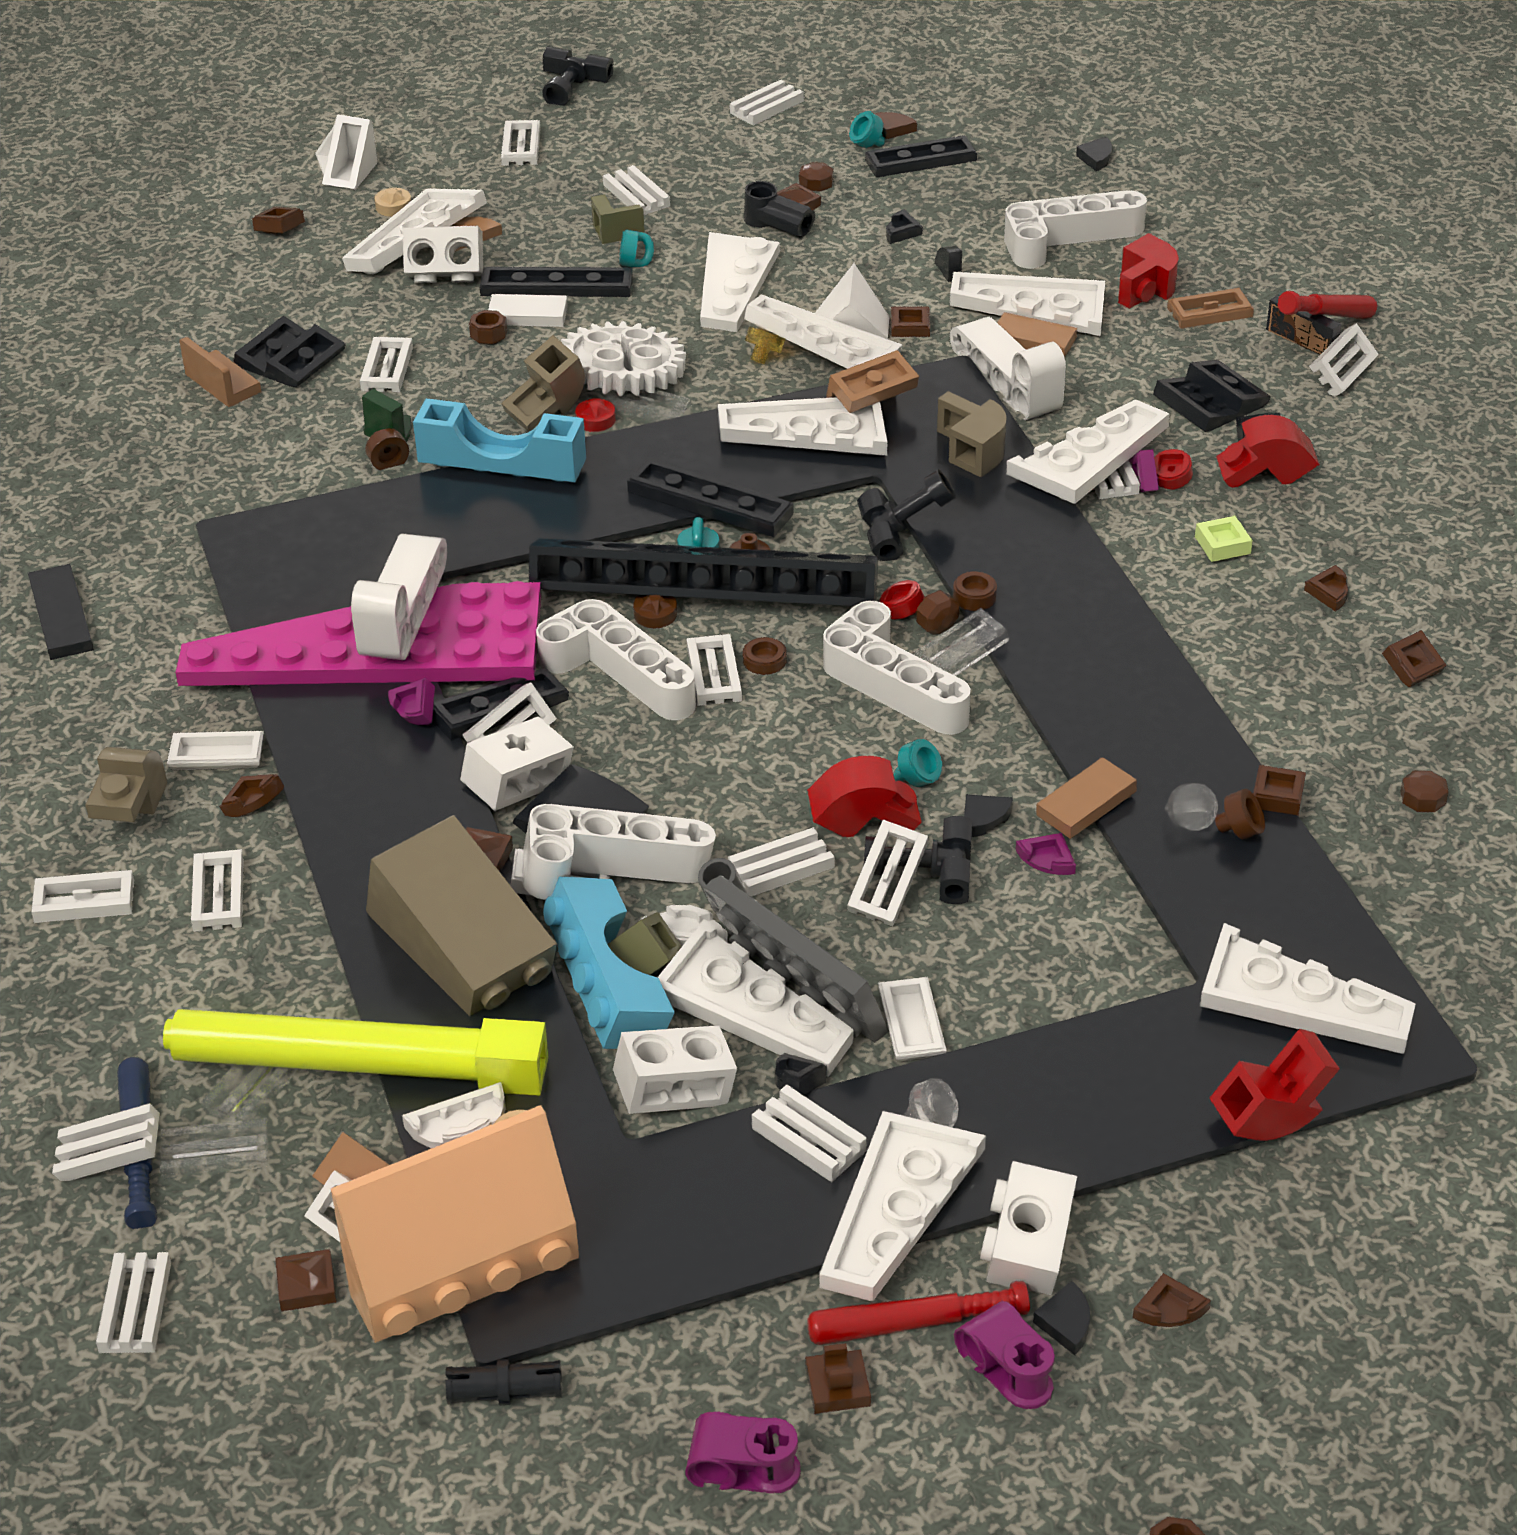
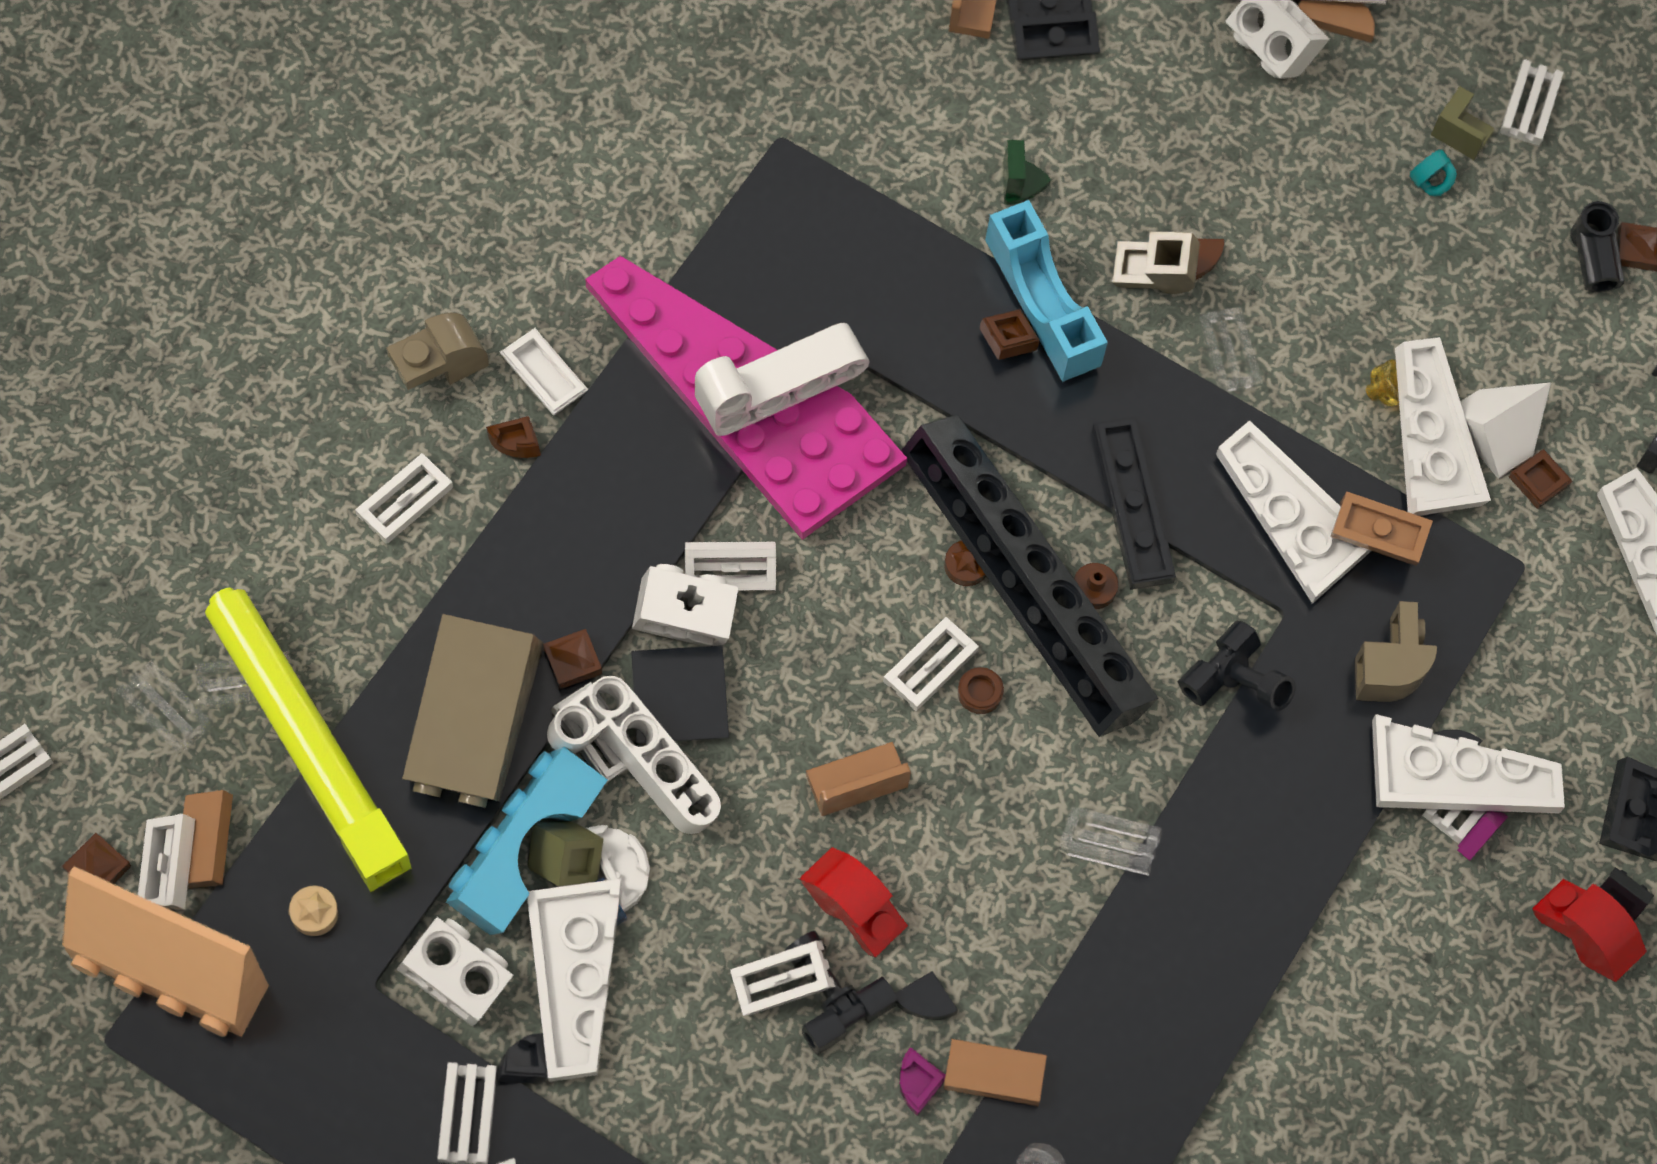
camera: 45 degrees right, 25 degrees up
(60, 611) = (603, 128): black tile -> none
(83, 902) = (352, 438): white tile -> none
(106, 1135) = (90, 618): white tile -> none
(135, 1092) = (136, 647): dark blue piece -> none
(384, 381) = (1075, 123): white tile -> none
(387, 449) = (984, 198): reddish brown tile -> none
(414, 701) = (691, 478): magenta tile -> none
(456, 1116) = (301, 858): white tile -> none
(463, 711) = (727, 521): black tile -> none
(488, 327) = (1219, 143): reddish brown tile -> none
(503, 1382) = (102, 1069): black pin -> none
(507, 483) = (1009, 334): none -> reddish brown tile
(531, 309) = (1274, 154): white tile -> none
(557, 281) = (1337, 145): black tile -> none
(597, 414) = (1177, 321): red tile -> none
(622, 651) = (876, 595): white beam -> none
(627, 357) = (1231, 262): white gear -> none
(698, 535) = (1077, 533): teal tile -> none
(734, 277) = (1476, 281): white wing -> none
(764, 753) = (858, 778): none -> medium nougat panel
(778, 857) = (756, 865): white tile -> none
(790, 952) = (626, 967): dark grey hinge -> none
(862, 657) = (1033, 818): white beam -> none
(902, 598) = (1136, 750): red tile -> none
(912, 1019) = (652, 1102): white tile -> none
(918, 763) = (937, 909): teal tile -> none
(937, 612) = (1139, 792): reddish brown tile -> none
(975, 590) = (1188, 804): reddish brown tile -> none
(1027, 378) = (1533, 613): white beam -> none
(1035, 332) = (1613, 599): medium nougat tile -> none
(1173, 468) = (1508, 853): red tile -> none
(1223, 538) = (1442, 962): yellowish green plate -> none
(1329, 587) = (1456, 1095): reddish brown tile -> none

